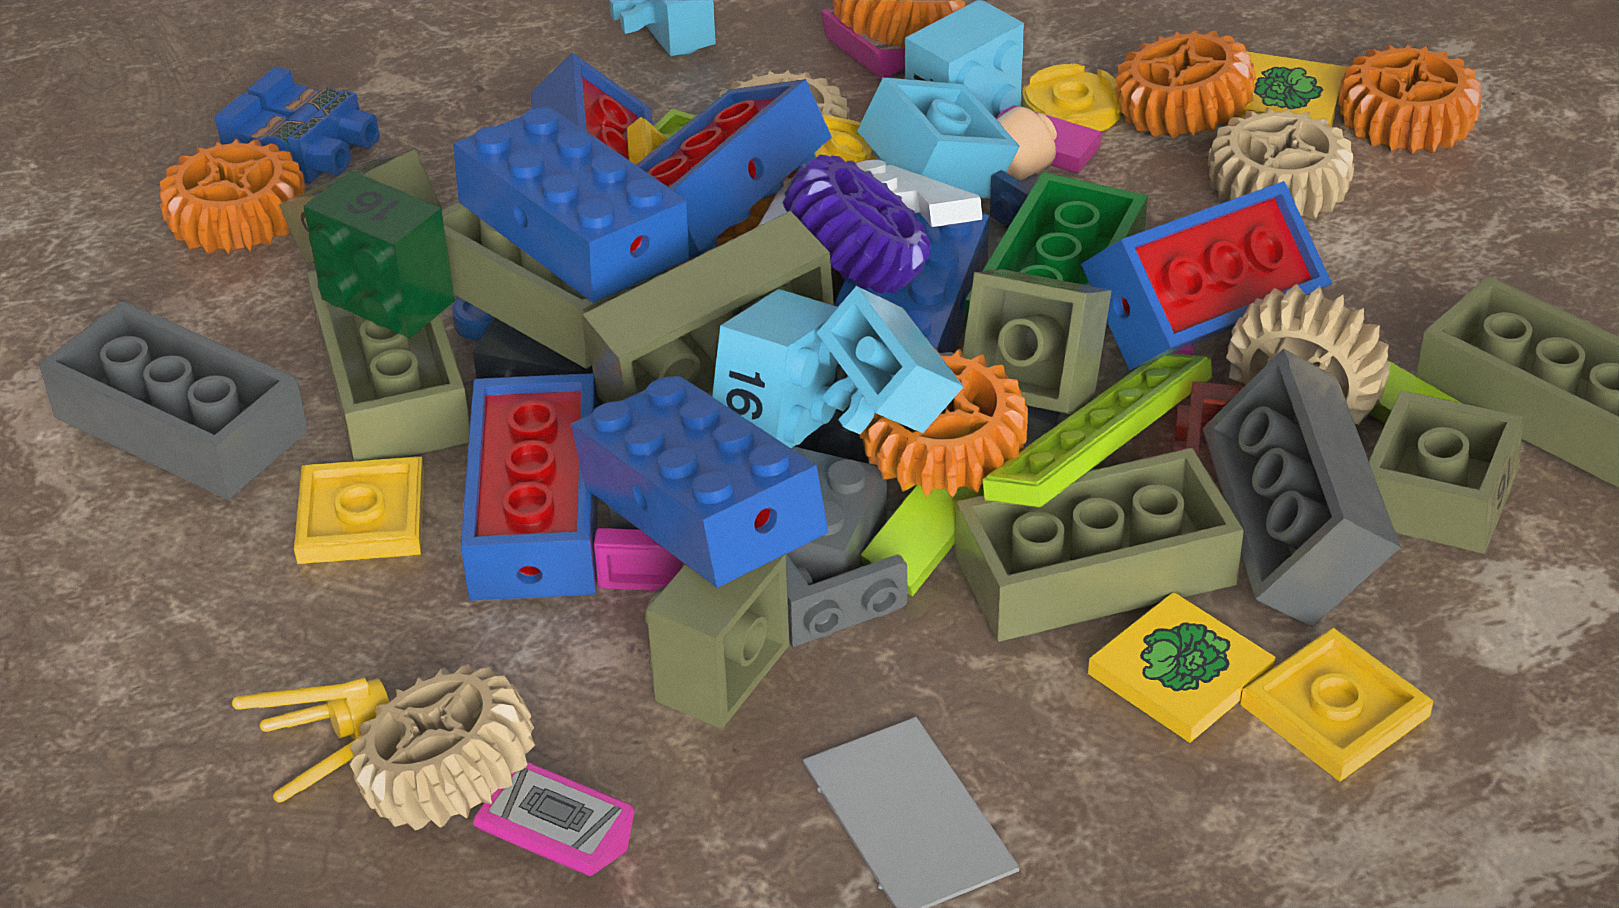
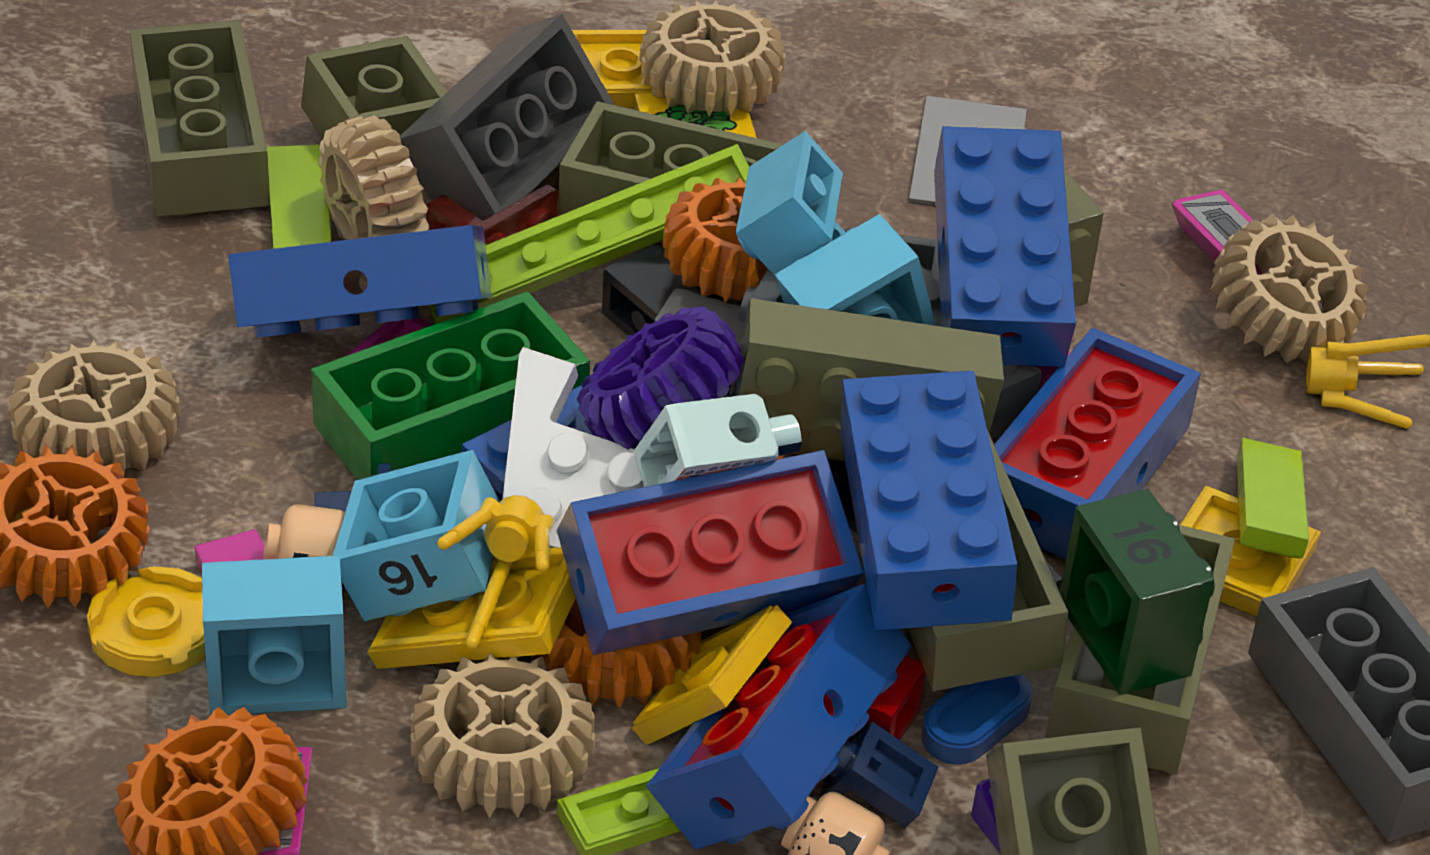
camera: 150 degrees left, 0 degrees up
(349, 536) = (1271, 498): none -> lime tile
(750, 162) = (713, 438): none -> light aqua torso
(862, 133) = (511, 533): none -> yellow plant
(1041, 333) = (578, 279): olive brick -> none
(1232, 696) = (712, 58): none -> tan gear

